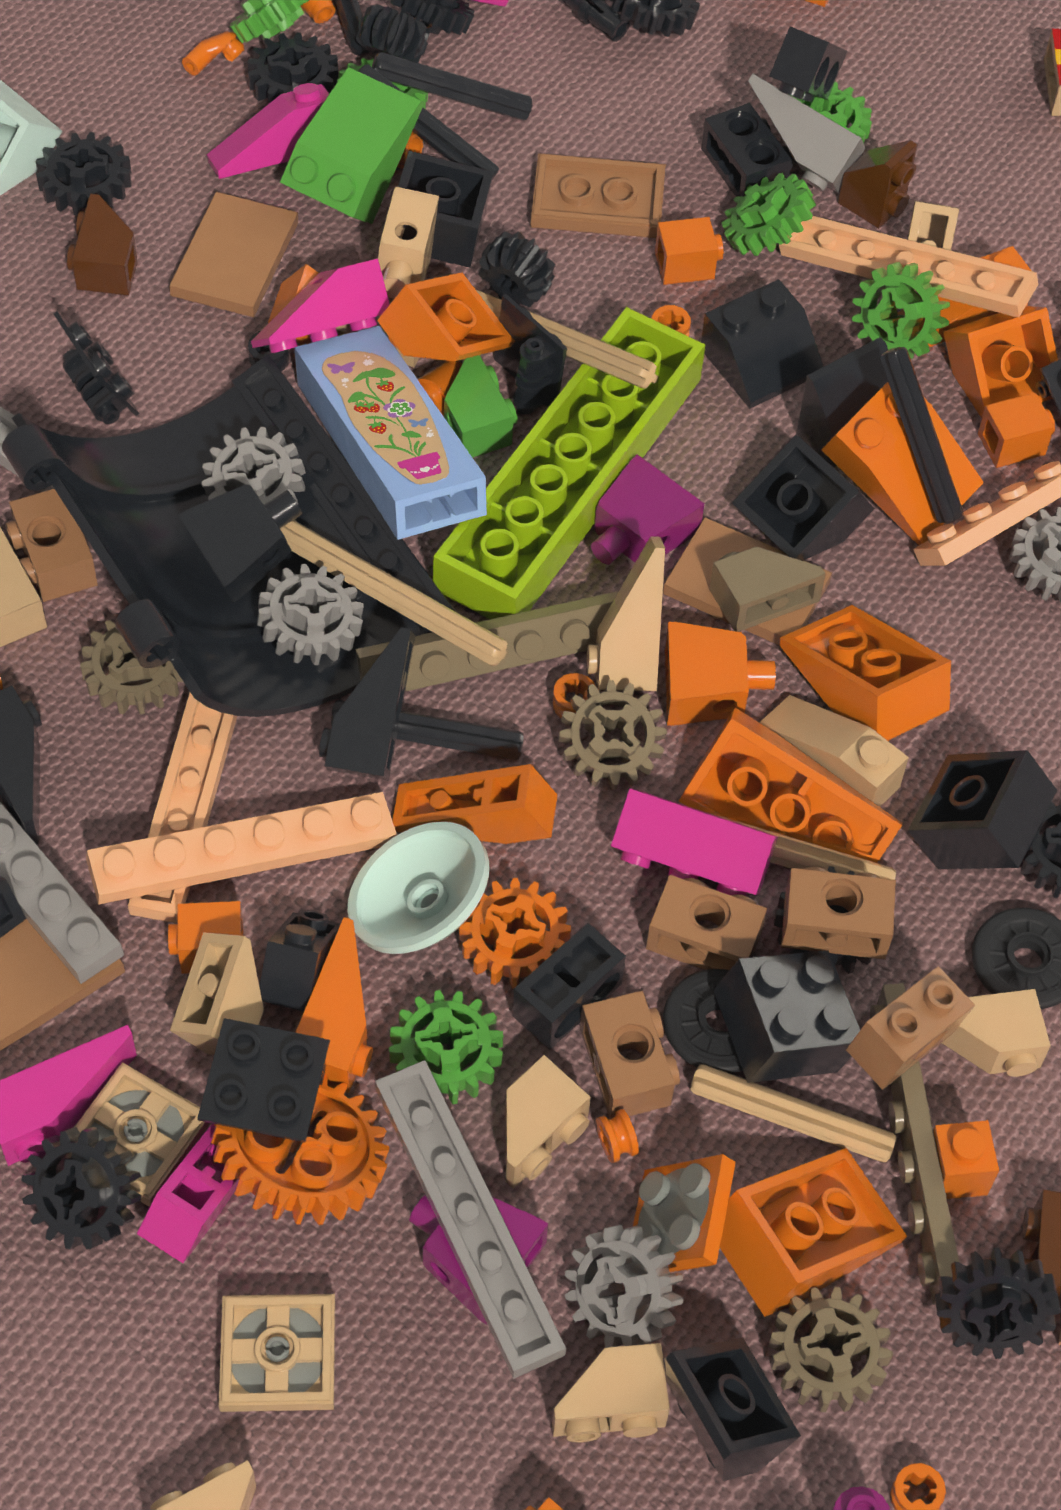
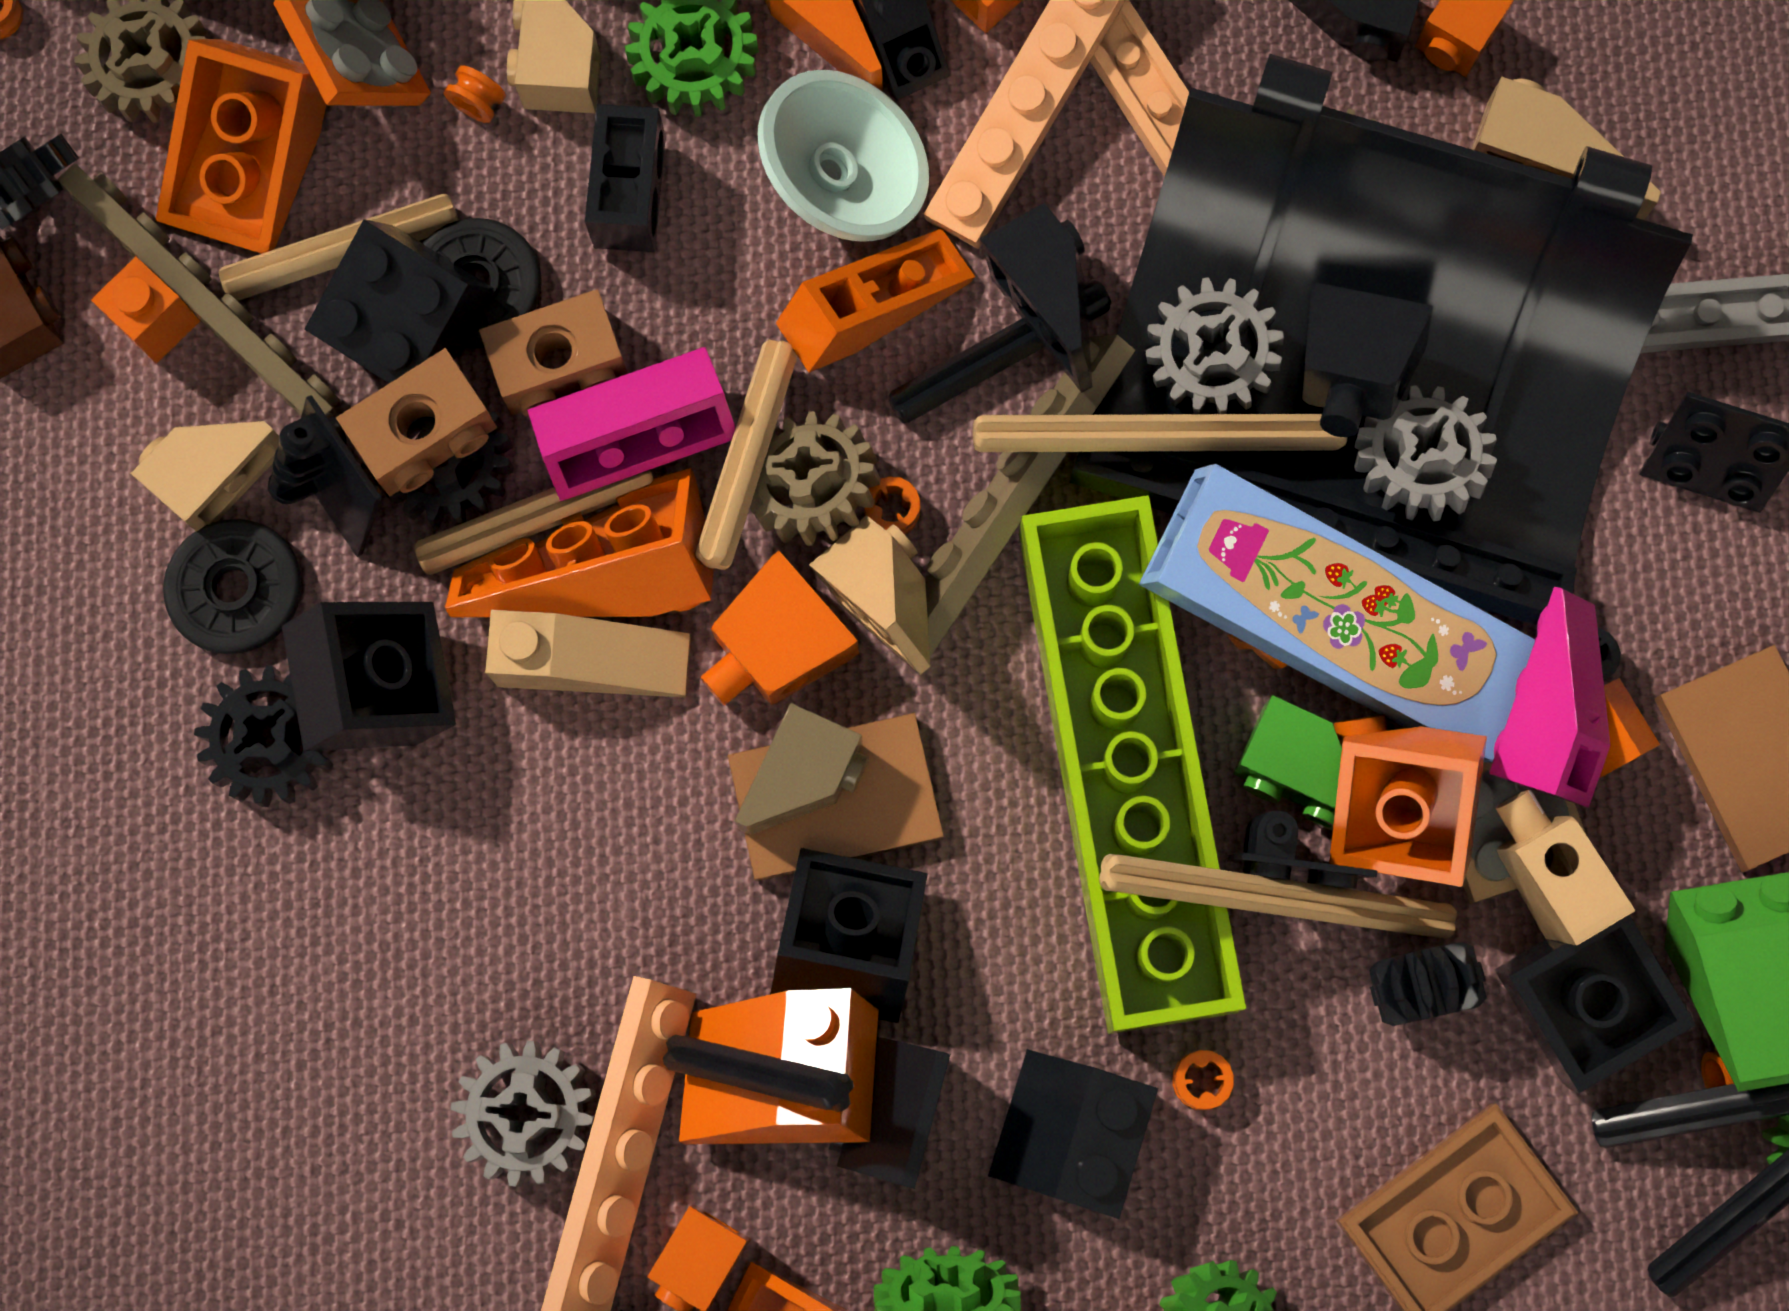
camera: 145 degrees right, 20 degrees up
(498, 919) = (701, 212): orange gear -> none
(625, 1083) = (505, 142): medium nougat brick -> none
(640, 768) = (746, 455): none -> tan axle
(641, 506) = (1007, 774): magenta torso -> none
(687, 250) = (1275, 1206): orange brick -> none
(871, 671) = (620, 772): orange slope -> none
(910, 1027) = (258, 351): medium nougat brick -> none
(917, 948) = (317, 461): none -> black hinge

